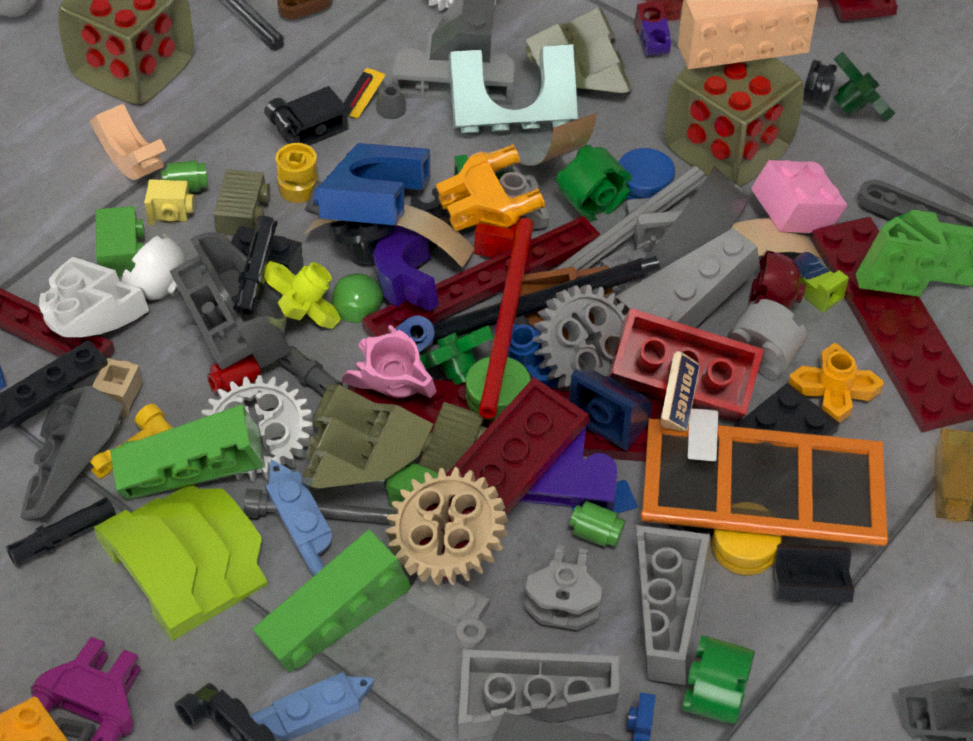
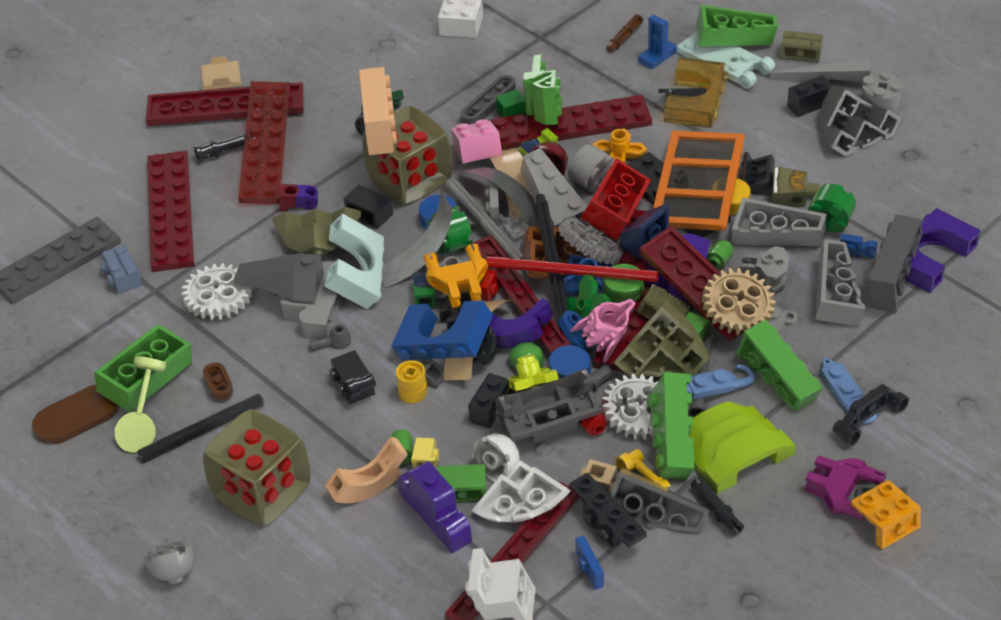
camera: 80 degrees left, 5 degrees down
(67, 207) = (436, 505): none -> dark purple brick
(240, 200) = (432, 415): olive brick -> none
(252, 277) = (517, 389): black pin -> none
(335, 342) = (569, 360): none -> blue head
(363, 92) = (322, 349): sticker -> none
(644, 101) = (373, 206): none -> black brick
(680, 392) = (642, 196): slope -> none
(703, 435) = (665, 198): white sticker -> none
(780, 627) = (791, 187): none -> olive torso

